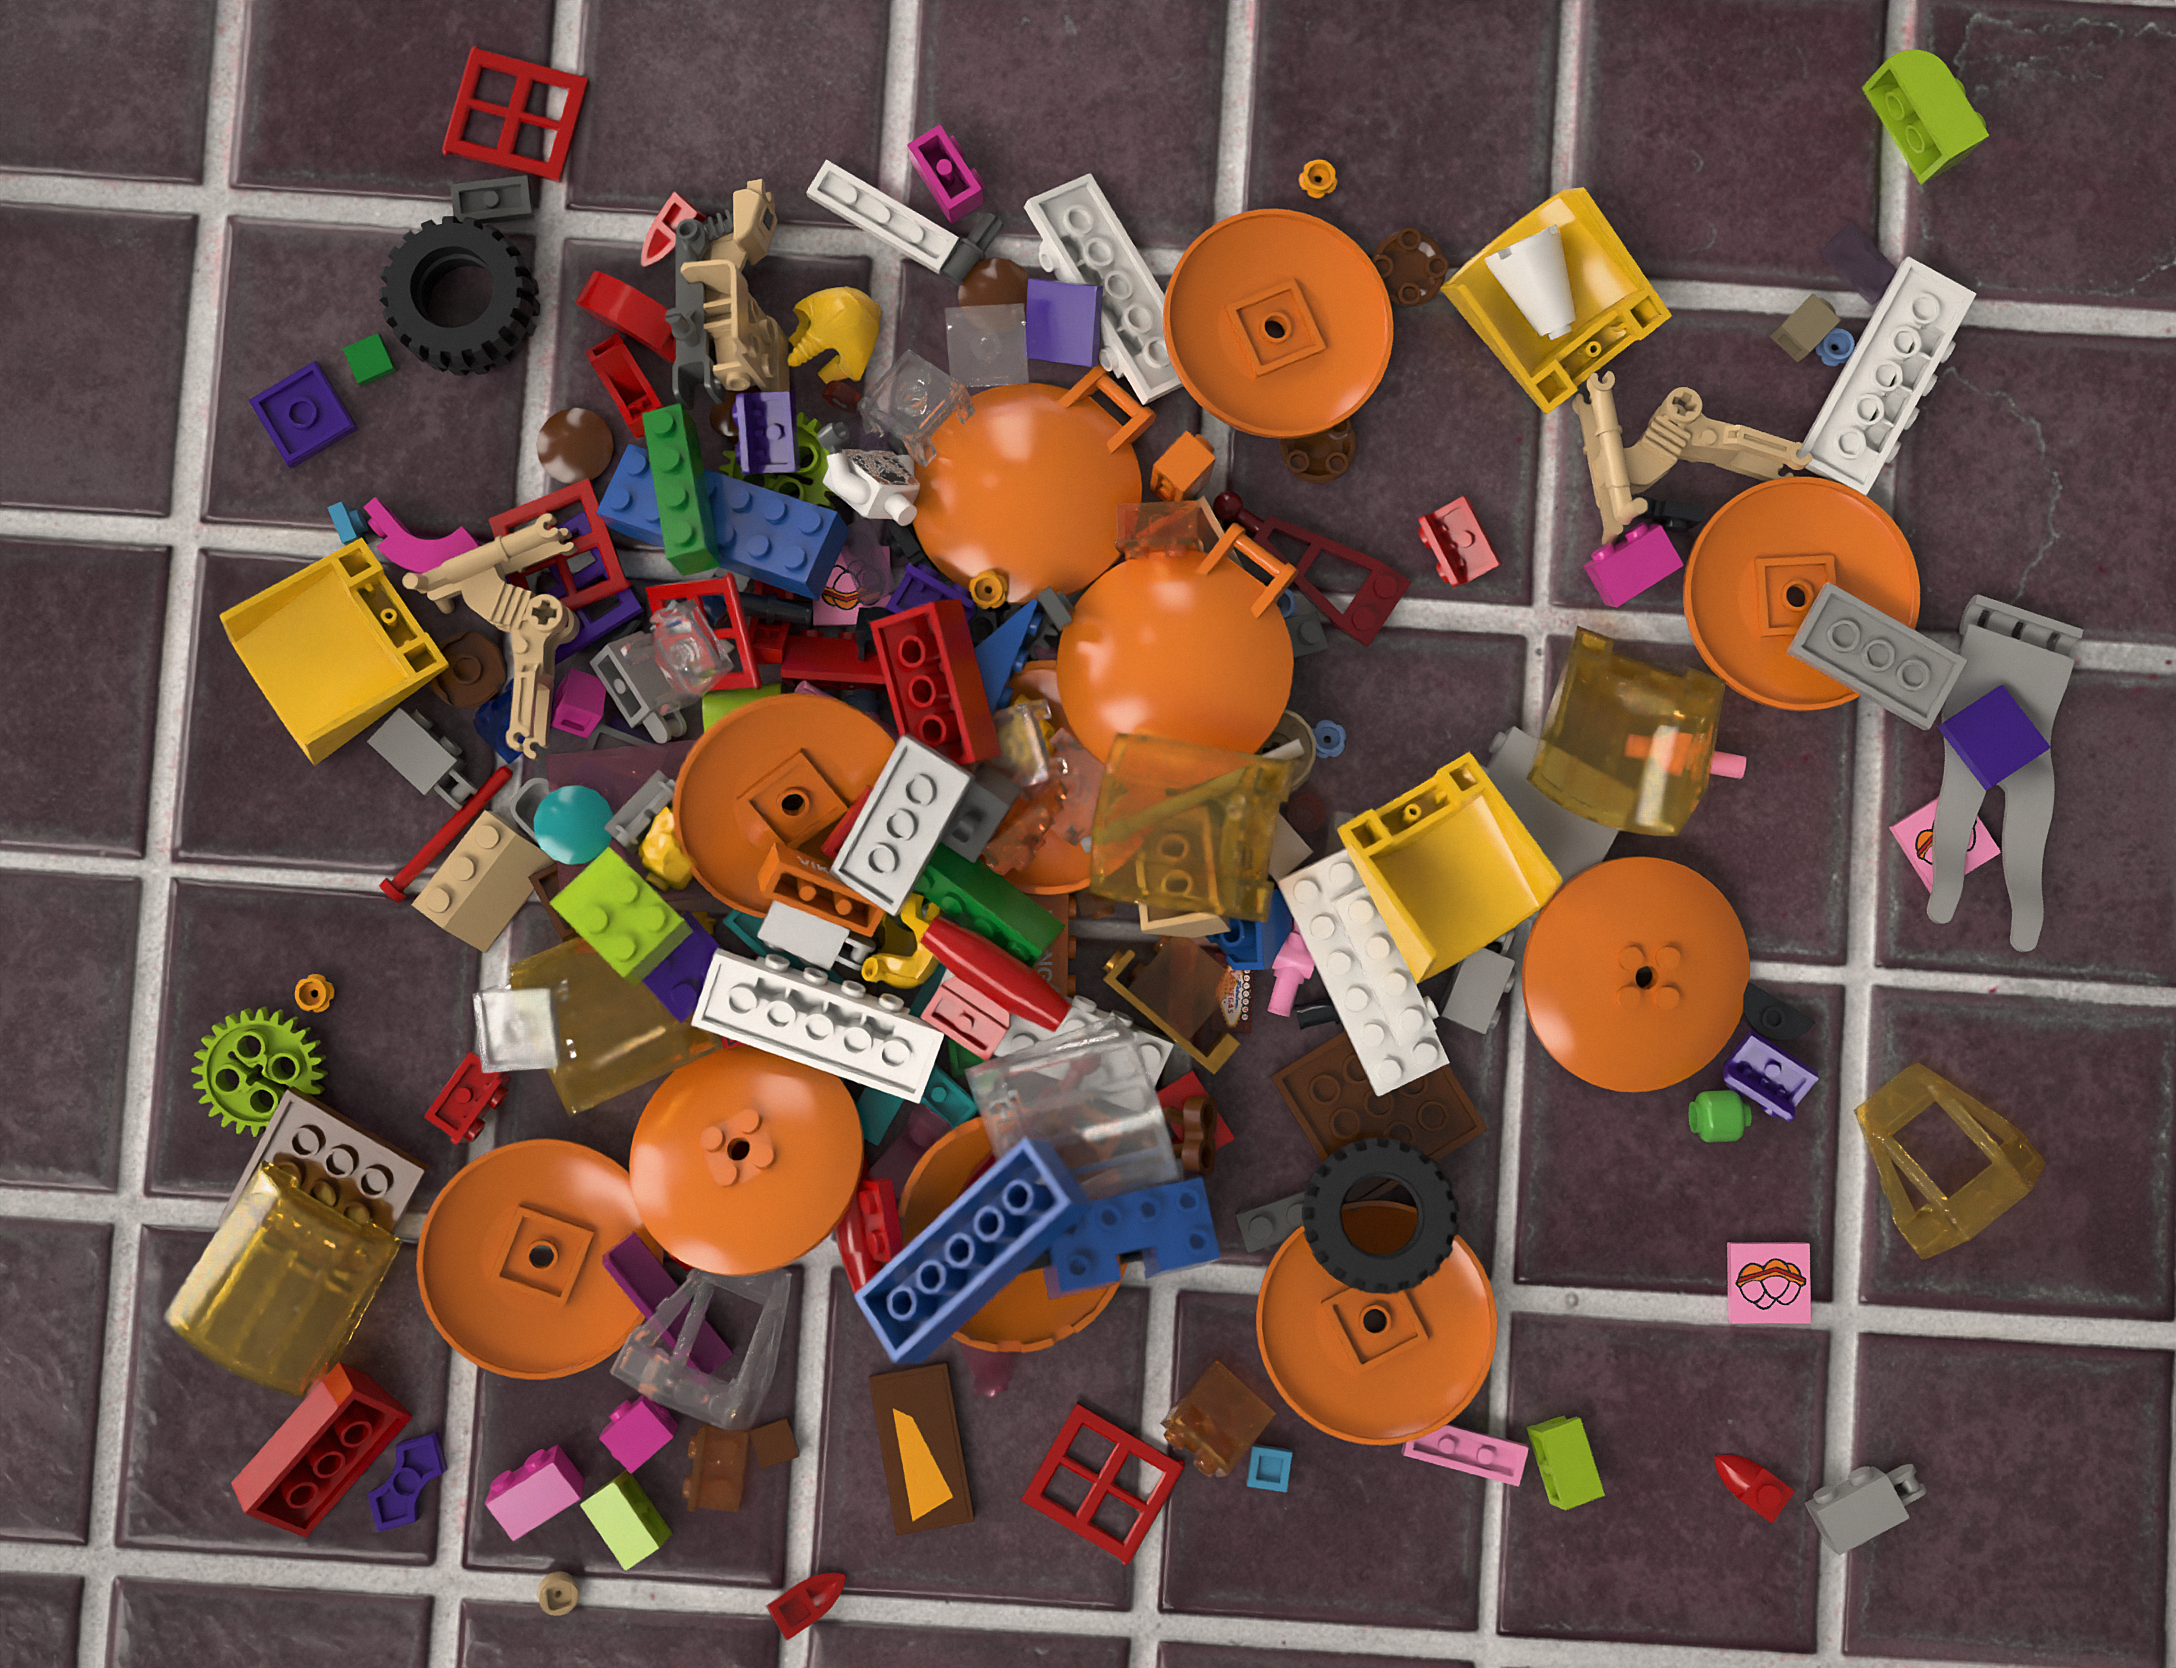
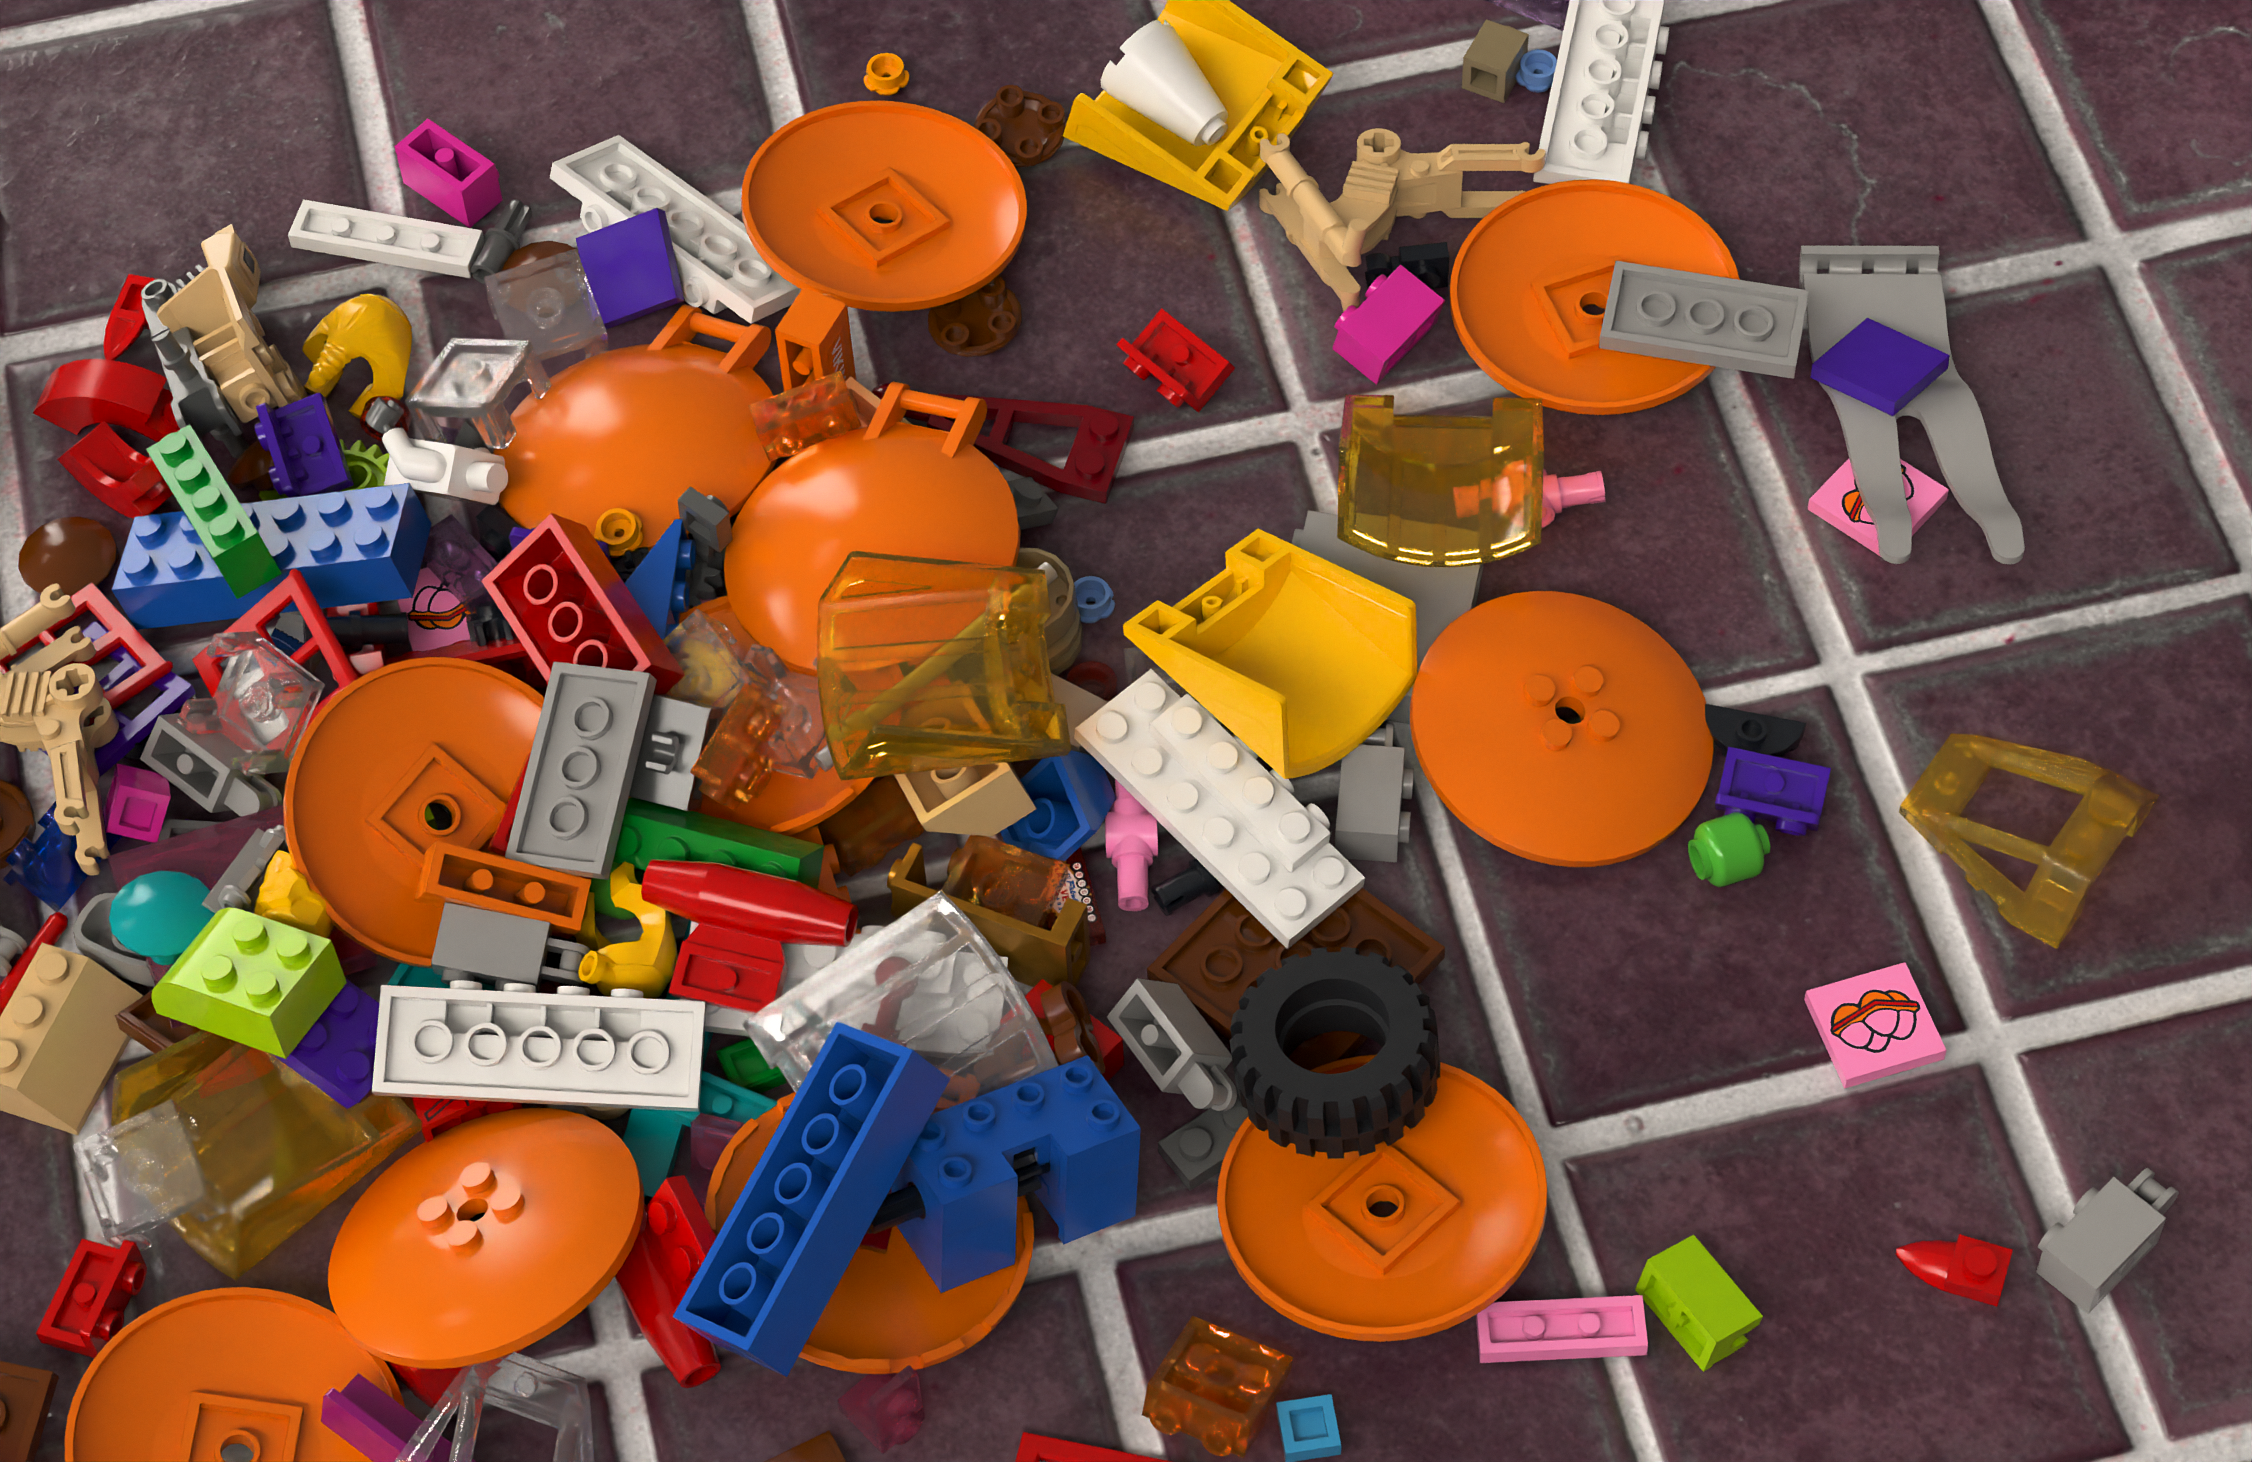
camera: 10 degrees left, 30 degrees down
(1271, 1156) = (1175, 1044): none -> light grey brick

